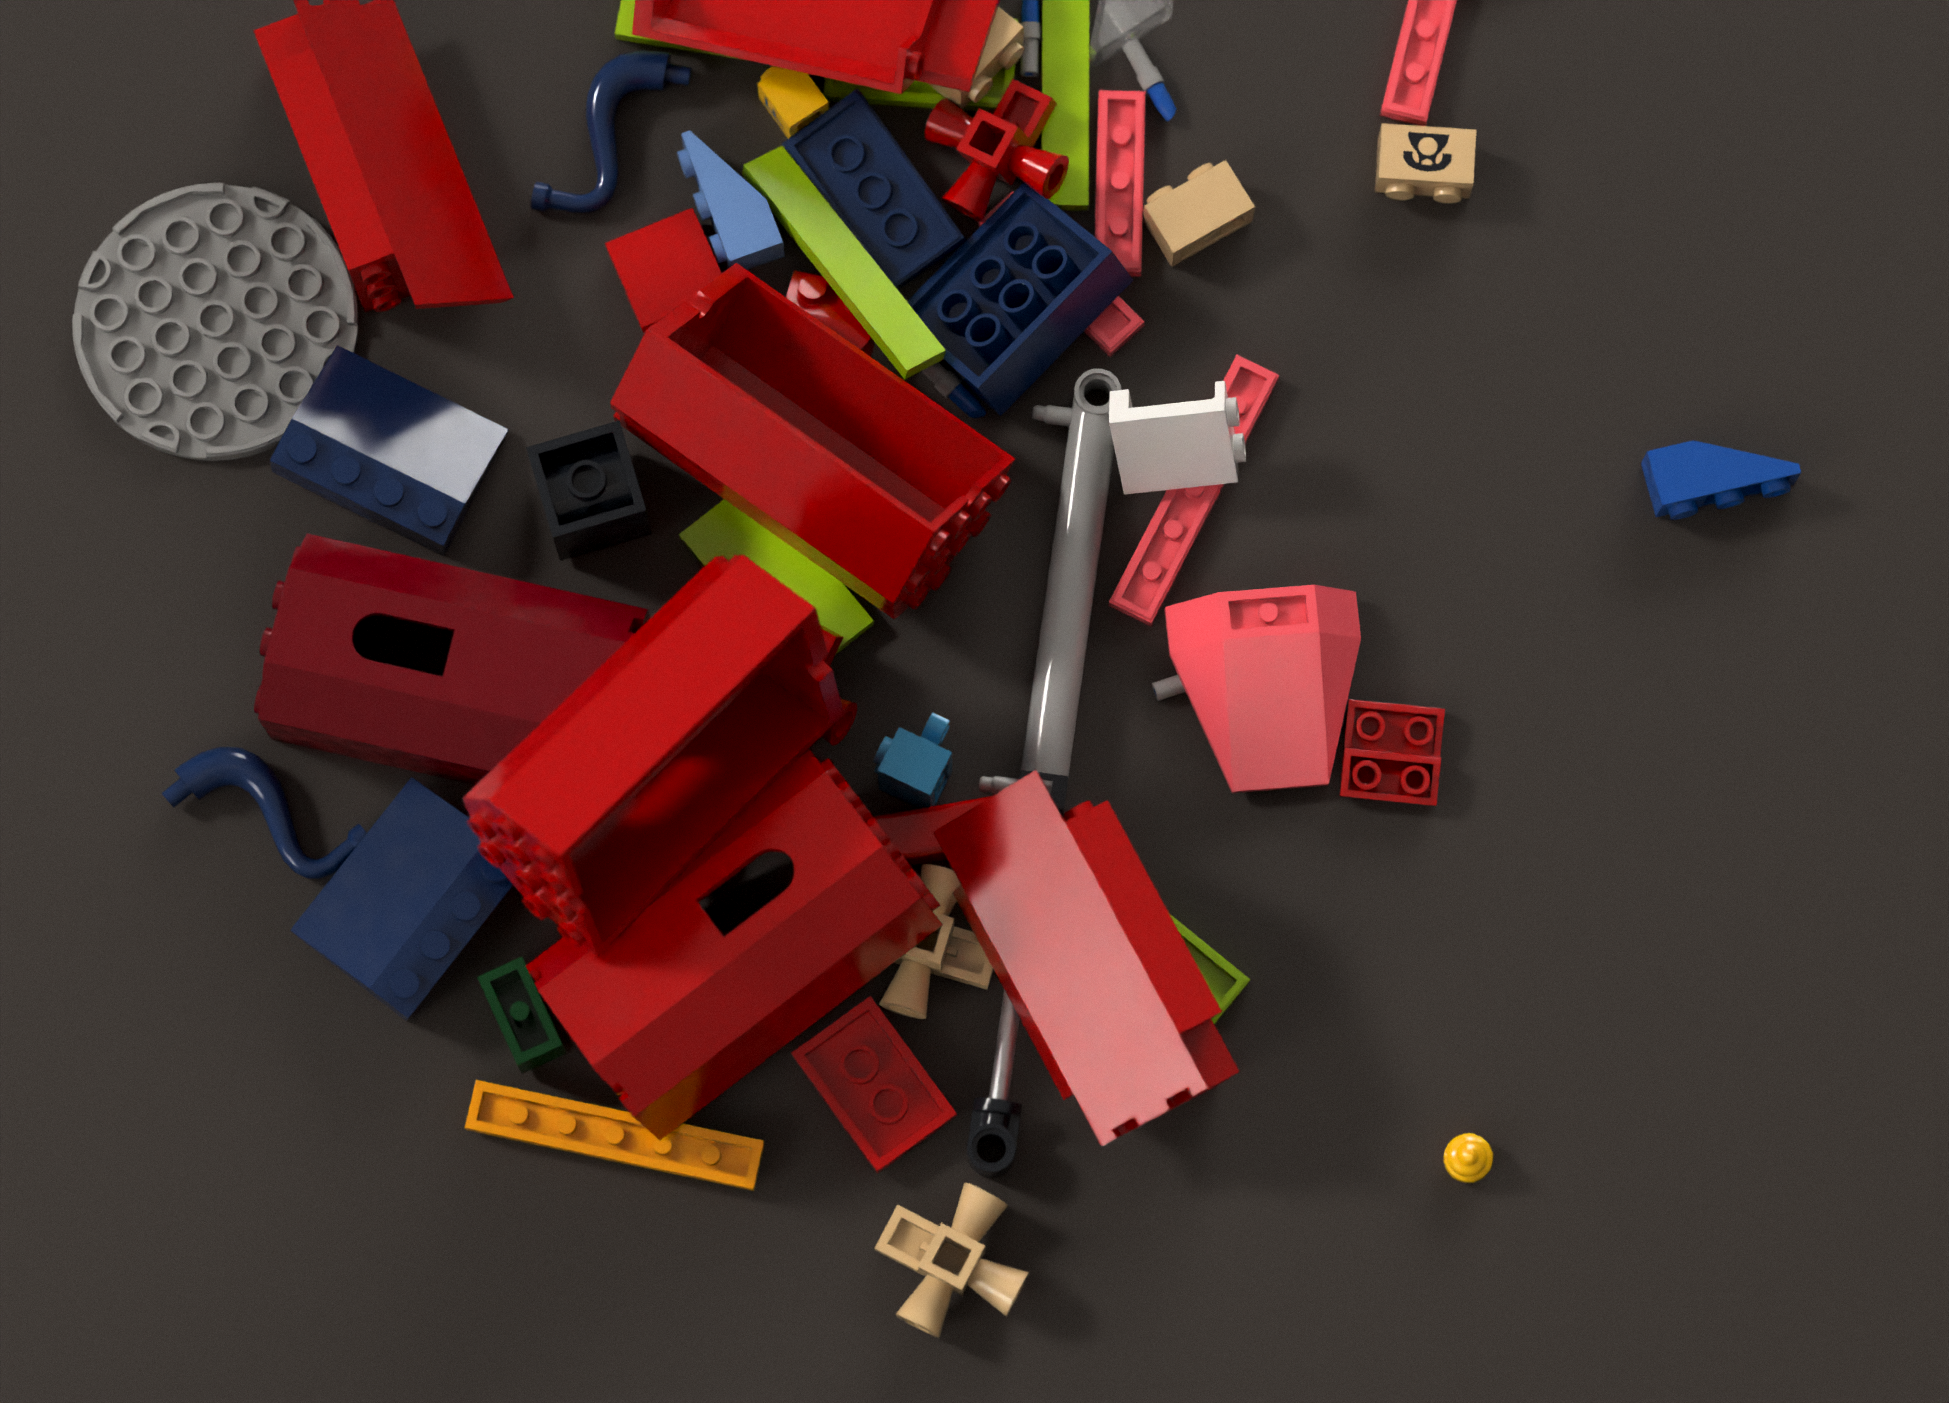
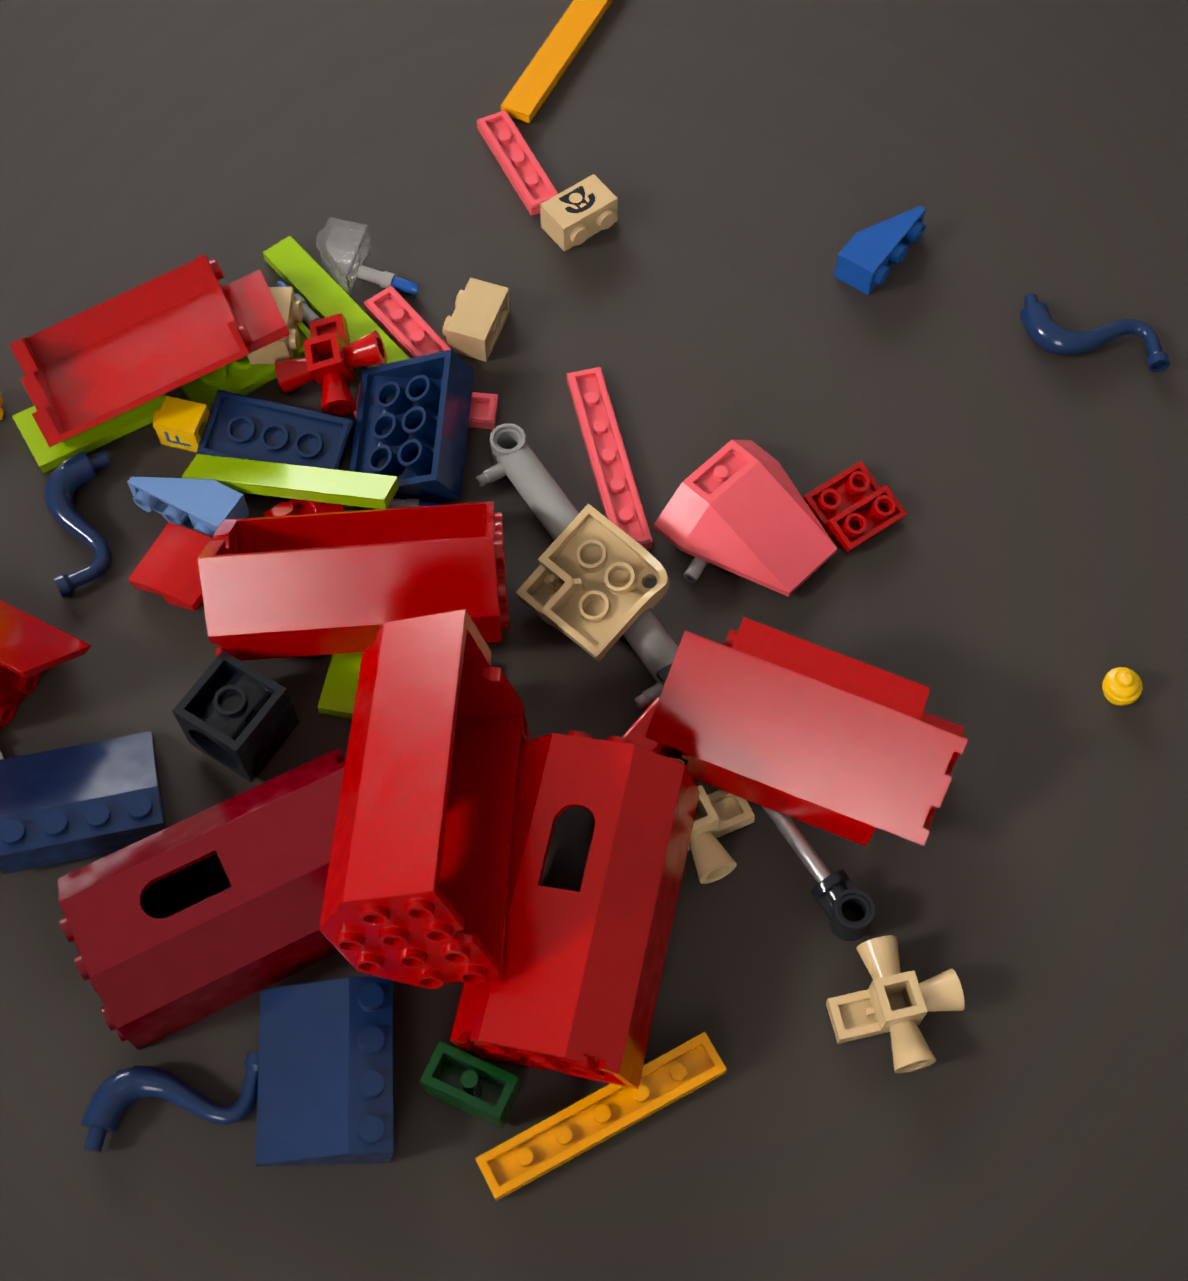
camera: 40 degrees left, 15 degrees down
(874, 1084) = (740, 937): red plate -> none
(915, 766) = (591, 710): dark azure brick -> none
(1037, 629) = (593, 582): none -> tan slope
(1176, 442) = (578, 427): white panel -> none
(1799, 749) = (1060, 341): none -> dark blue animal

